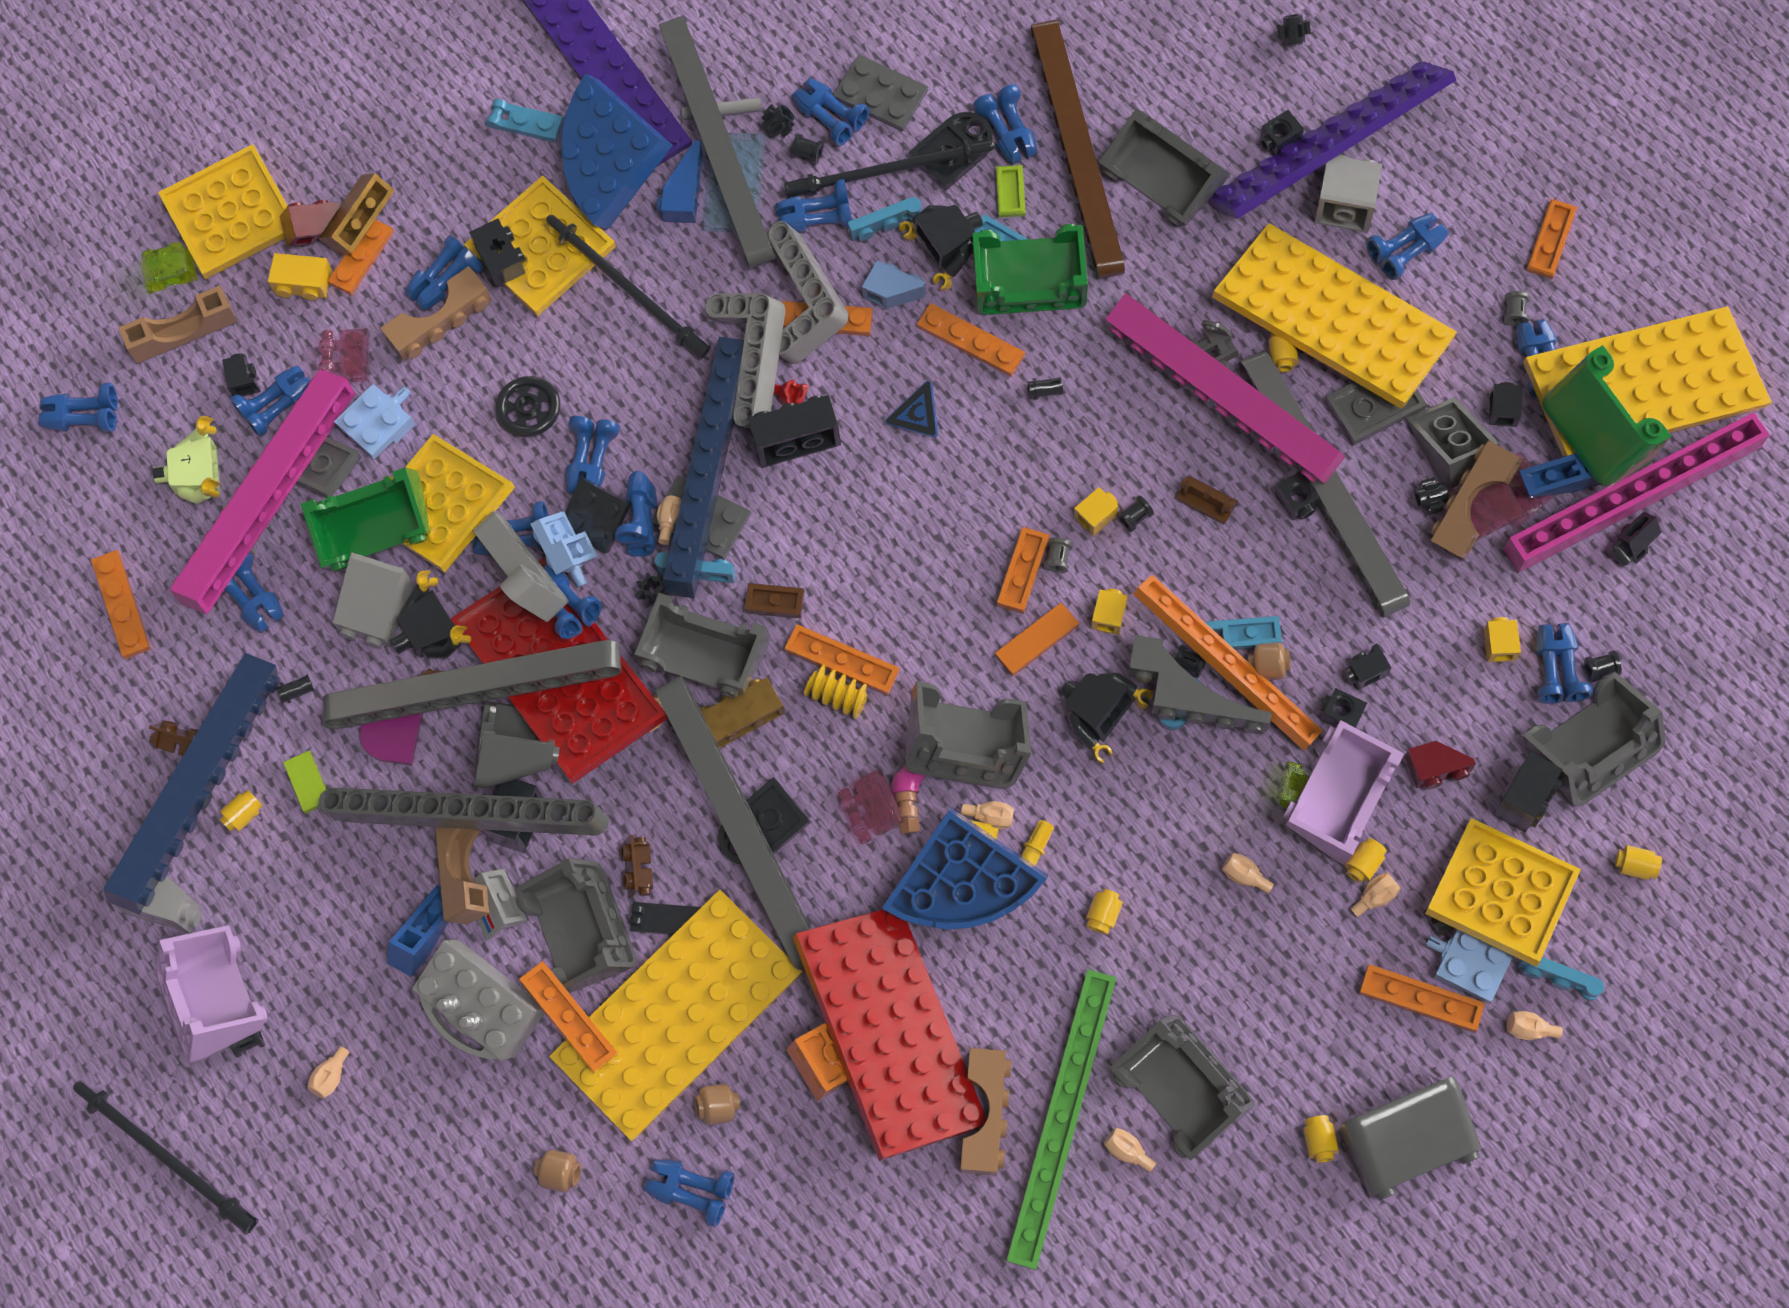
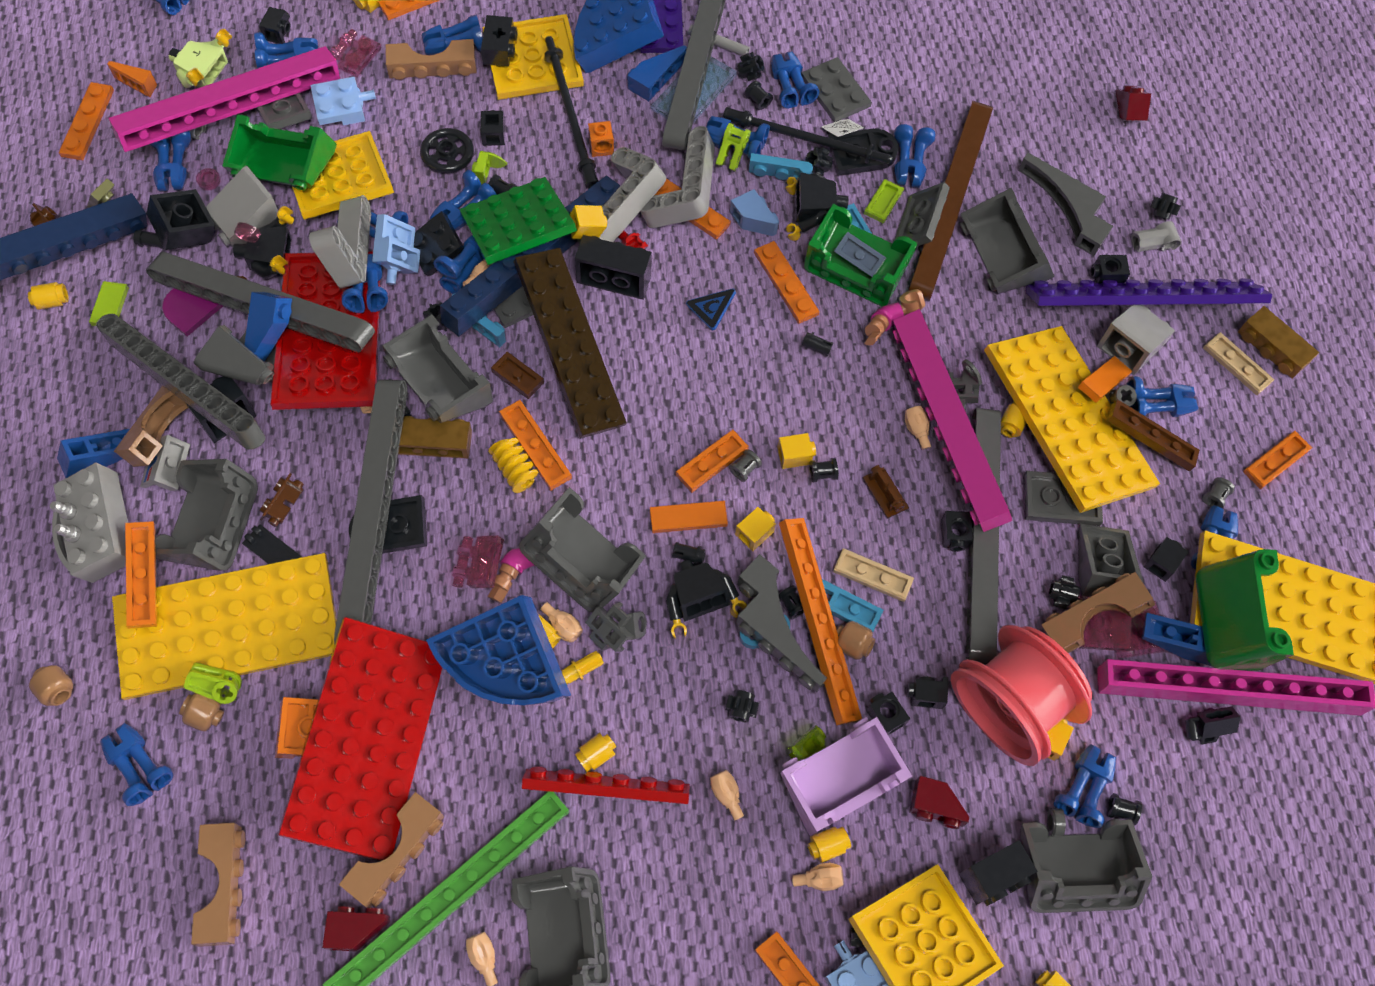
camera: 20 degrees right, 5 degrees down
(140, 525) = (134, 77): none -> orange slope
(214, 675) = (101, 194): none -> olive plate
(302, 588) = (208, 179): none -> clear pink tile
(318, 649) = (180, 219): none -> black brick
(402, 621) = (247, 232): none -> clear pink tile
(506, 698) = (266, 322): none -> blue slope
(567, 356) = (492, 128): none -> black brick
(578, 392) = (483, 164): none -> lime plate
(617, 412) = (500, 185): none -> black bush
(668, 442) = (517, 220): none -> green plate
(680, 297) = (601, 138): none -> orange brick
(710, 1071) = (211, 682): none -> lime piece
(742, 402) = (588, 221): none -> yellow brick
(808, 536) = (570, 342): none -> dark brown plate
(821, 215) = (728, 141): none -> lime piece
(827, 1208) = (217, 921): none -> medium nougat arch
(916, 134) = (842, 127): none -> white sticker
(919, 186) = (820, 160): none -> black gear
(997, 1202) = (352, 930): none -> dark red slope
(1029, 268) = (860, 254): none -> sand blue plate
(1034, 791) = (624, 630): none -> dark grey piece
(1062, 188) = (923, 214): none -> dark grey plate
(1062, 674) = (688, 552): none -> black pin
(1093, 317) = (883, 318): none -> nougat piece
(1125, 939) = (597, 785): none -> red plate
(1195, 411) = (918, 424): none -> light nougat piece
(1202, 75) = (1074, 199): none -> dark grey arch
(1208, 786) = (742, 706): none -> black gear
(1246, 587) = (873, 575): none -> tan tile
(1308, 66) = (1162, 236): none -> light grey piece
(1344, 256) = (1105, 379): none -> orange tile
(1370, 265) = (1124, 393): none -> dark grey bush
(1423, 287) = (1153, 435): none -> reddish brown plate
(1455, 617) = (1023, 693): none -> coral wheel
(1459, 159) = (1238, 363): none -> tan tile
(1485, 115) = (1278, 342): none -> pearl gold brick
(1551, 715) = (1056, 822): none -> dark grey tile

